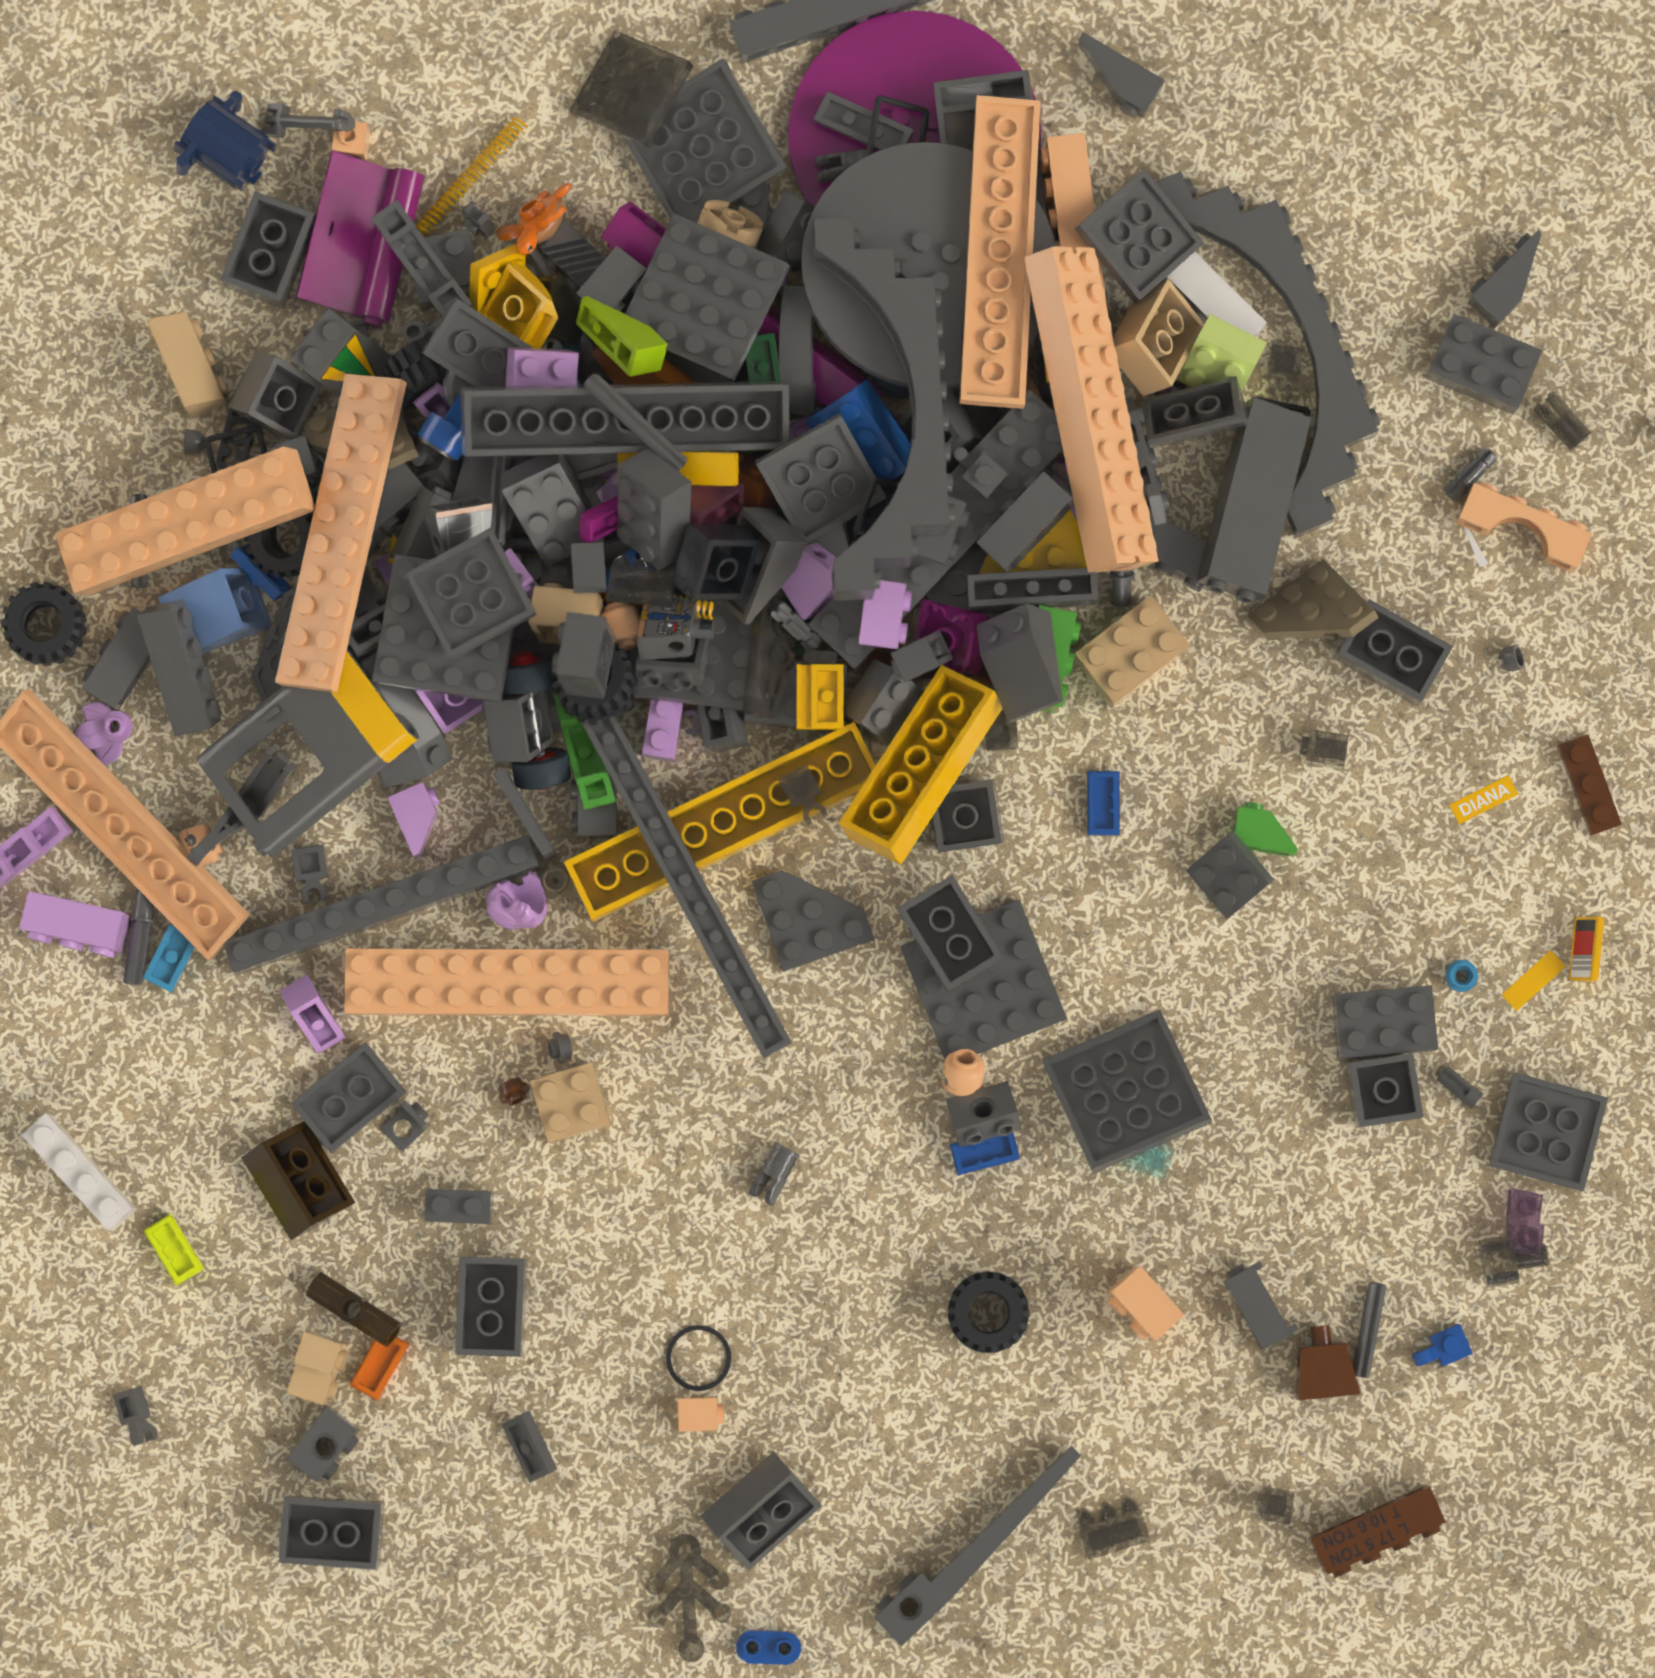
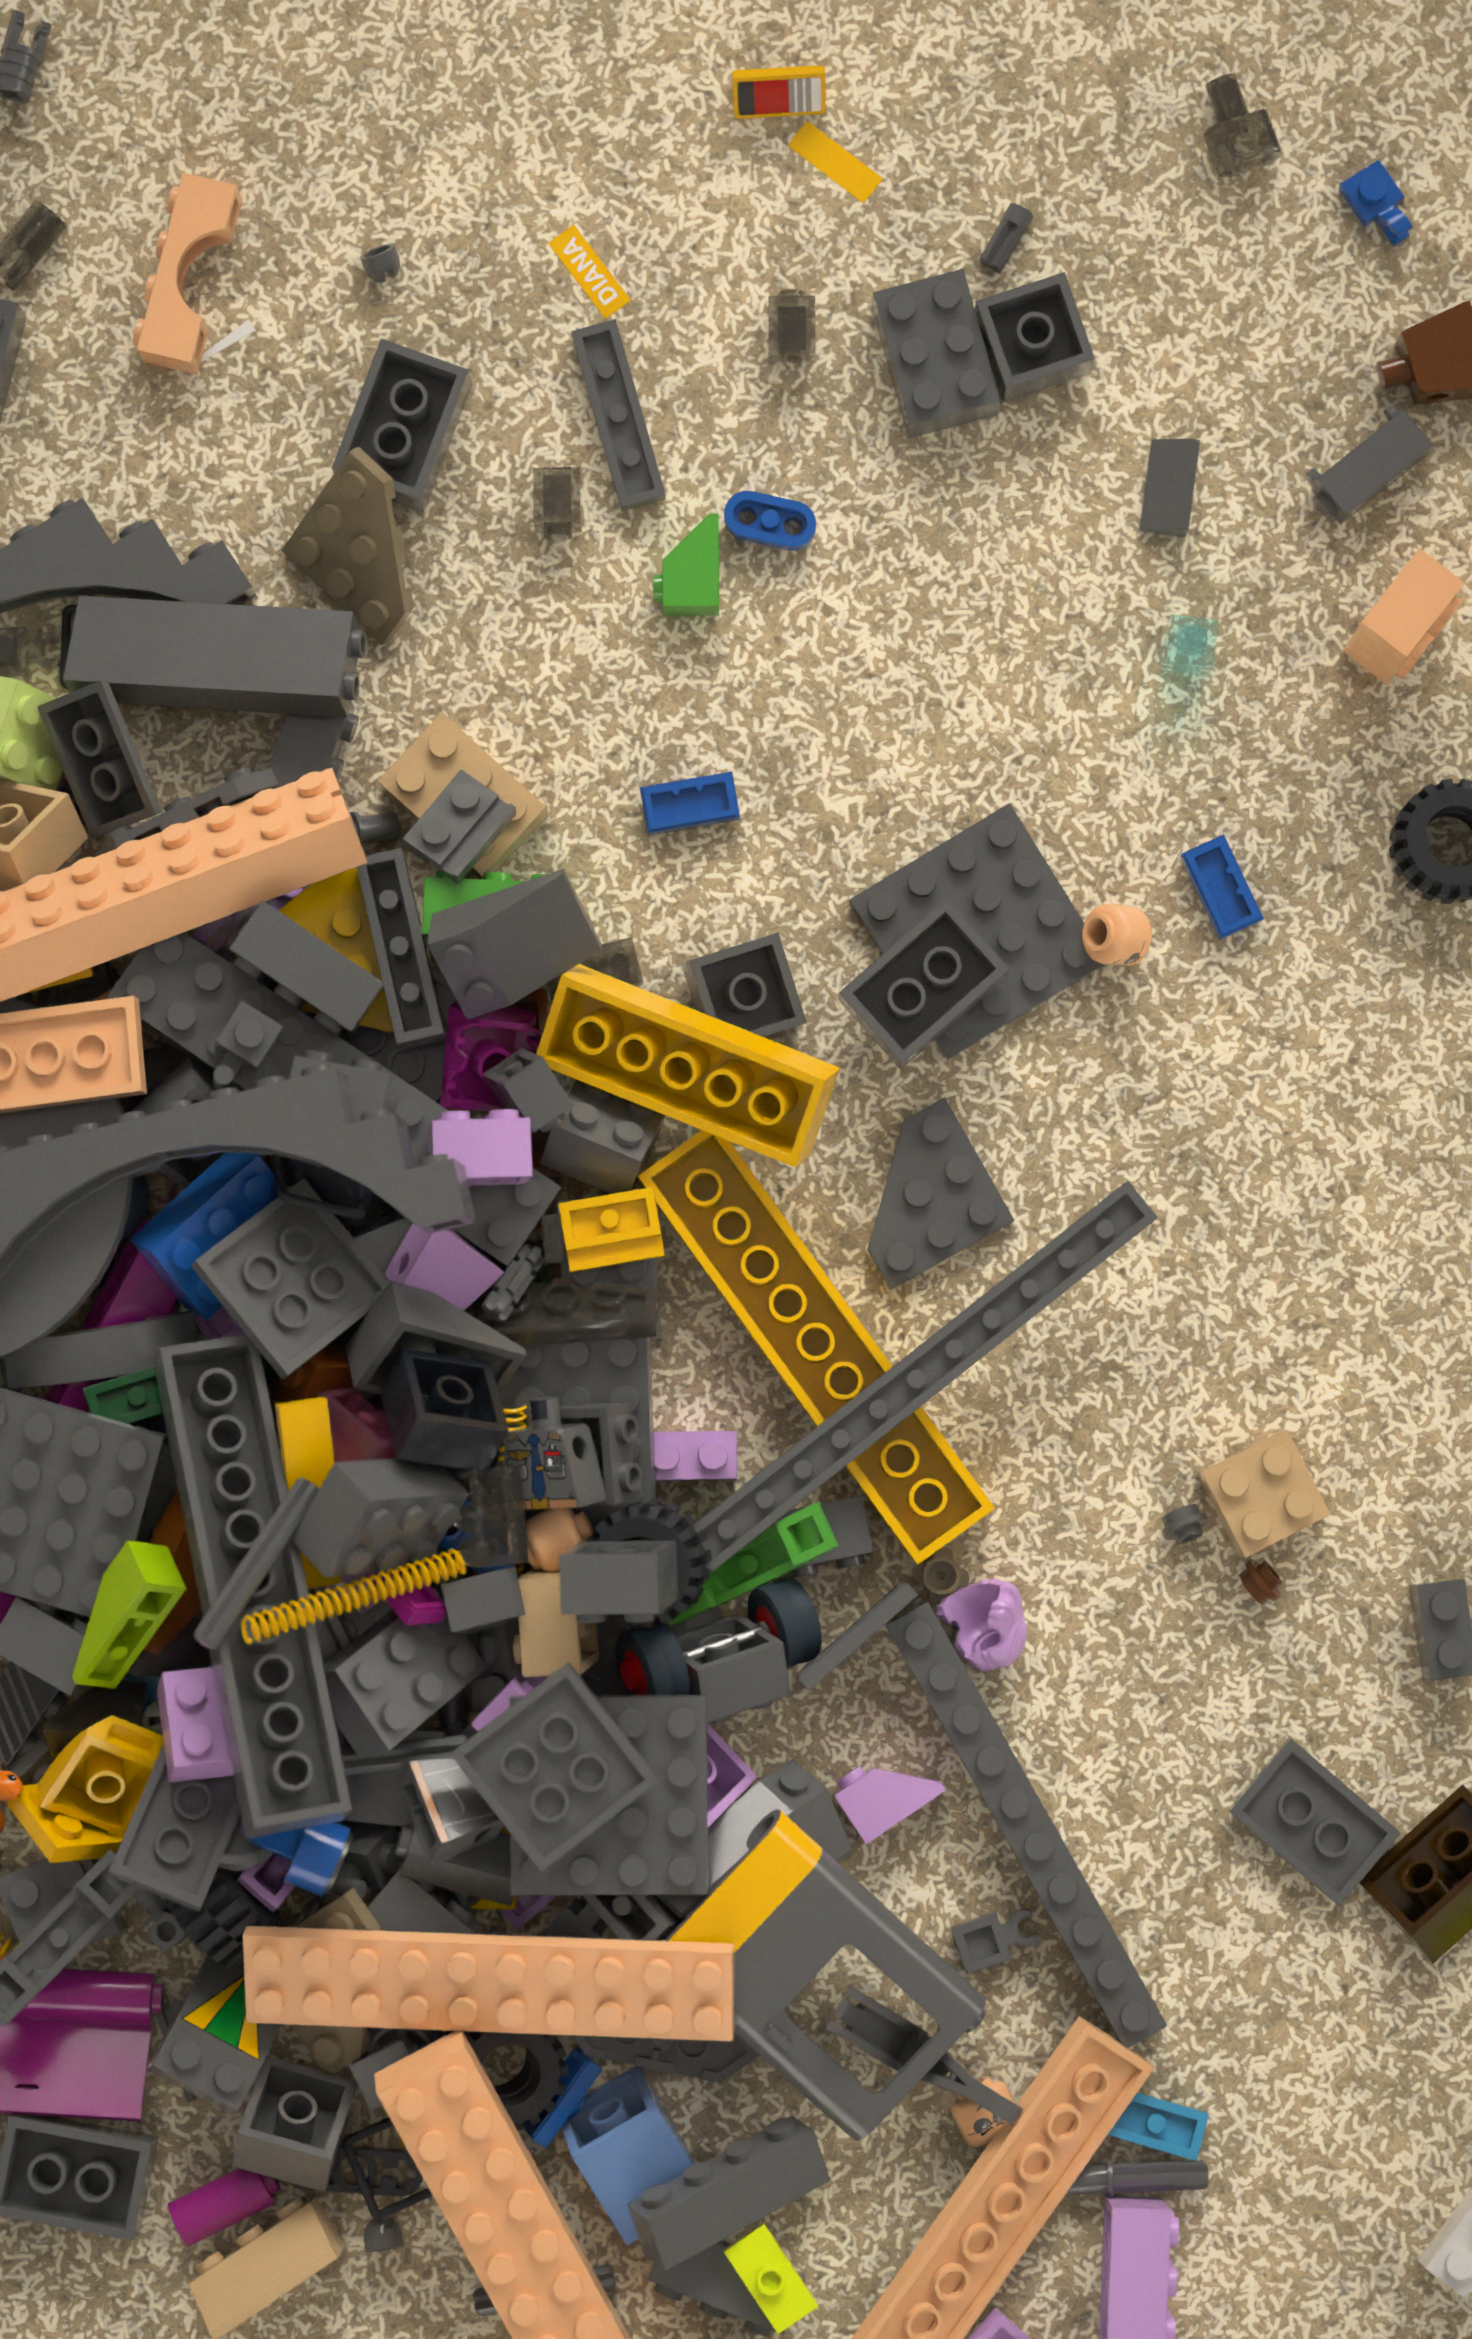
camera: 100 degrees left, 0 degrees up
(98, 731) = (846, 2294): lavender plate -> none
(119, 685) = (771, 2278): none -> neon yellow plate
(232, 341) = (222, 2204): none -> magenta brick
(312, 1014) = (1201, 1898): lavender slope -> none
(415, 1115) = (1323, 1715): dark grey bracket -> none
(507, 982) = (1105, 1619): light nougat brick -> none
(602, 482) = (417, 1579): none -> yellow piece
(721, 727) = (678, 1372): dark grey brick -> none
(777, 1166) = (1300, 1178): dark grey hinge -> none
(801, 790) = (753, 1232): clear smoke plate -> none
(991, 1101) = (1149, 883): dark grey brick -> none
(1107, 641) = (459, 826): none -> dark grey plate
(1126, 1091) = (1102, 696): dark grey plate -> none
(1229, 874) = (763, 604): dark grey plate -> none
(1267, 1167) = (1169, 486): none -> dark grey slope
(1288, 891) = (771, 517): none -> blue plate
(1369, 1329) = (1370, 308): dark grey axle -> none
(1378, 800) = (618, 415): none -> dark grey plate
(1420, 928) = (791, 327): none -> clear smoke brick
(1470, 474) = (123, 363): dark grey axle -> none
(1471, 971) = (852, 247): dark azure plate -> none
(1523, 1222) = (1182, 118): slope -> none
(1548, 1131) = (1047, 105): dark grey plate -> none
(1589, 785) = (544, 127): reddish brown plate -> none

